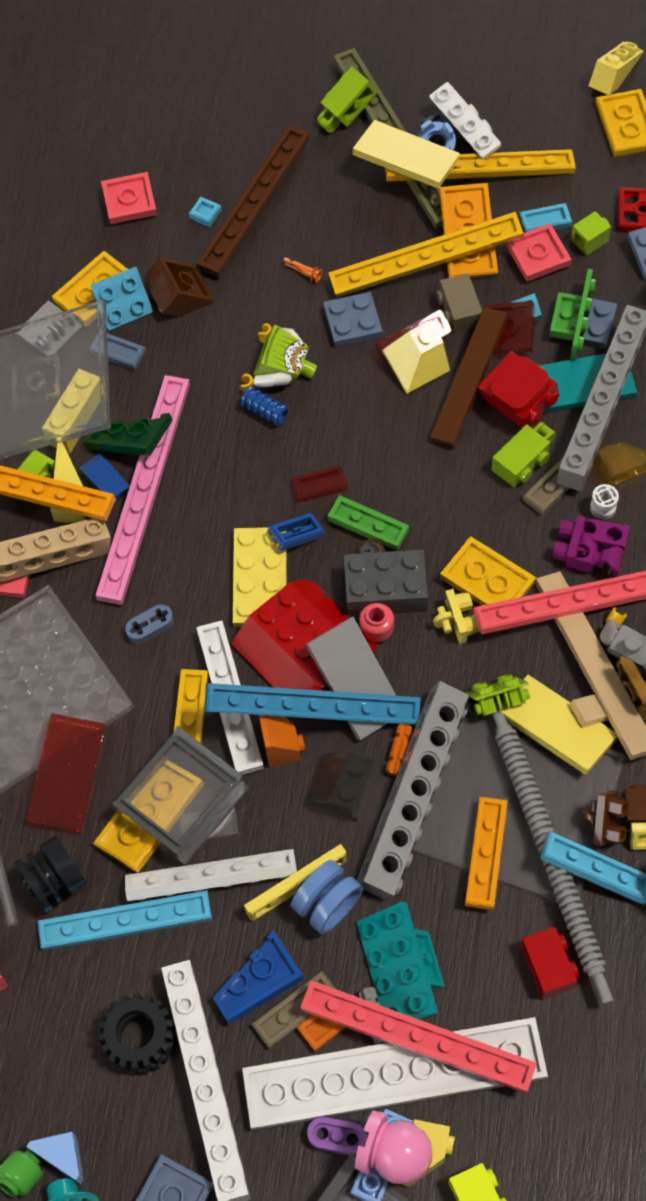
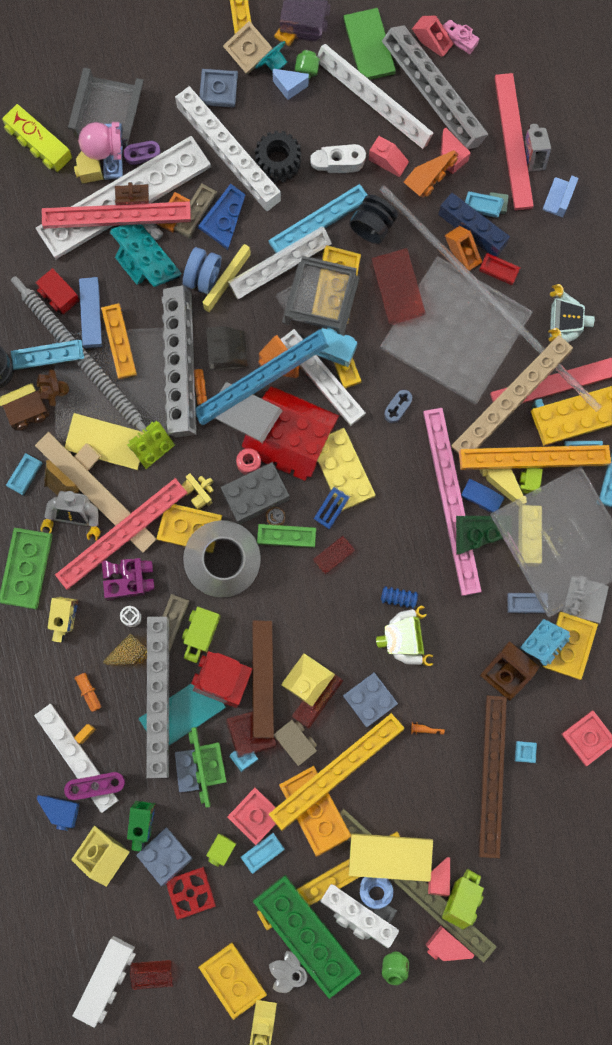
camera: 150 degrees right, 15 degrees up
(73, 1005) = (323, 159): none -> white piece
(186, 707) = (340, 347): none -> medium azure brick
(359, 126) = (440, 879): none -> coral tile
(382, 1052) = (132, 194): none -> reddish brown hips
(386, 72) = (447, 947): none -> coral slope
(448, 69) = (395, 968): none -> bright green head
(461, 537) = (194, 559): none -> light grey cone
(511, 913) = (90, 312): none -> medium blue tile
(530, 126) = (307, 936): none -> green plate
(567, 108) = (284, 973): none -> light grey plate

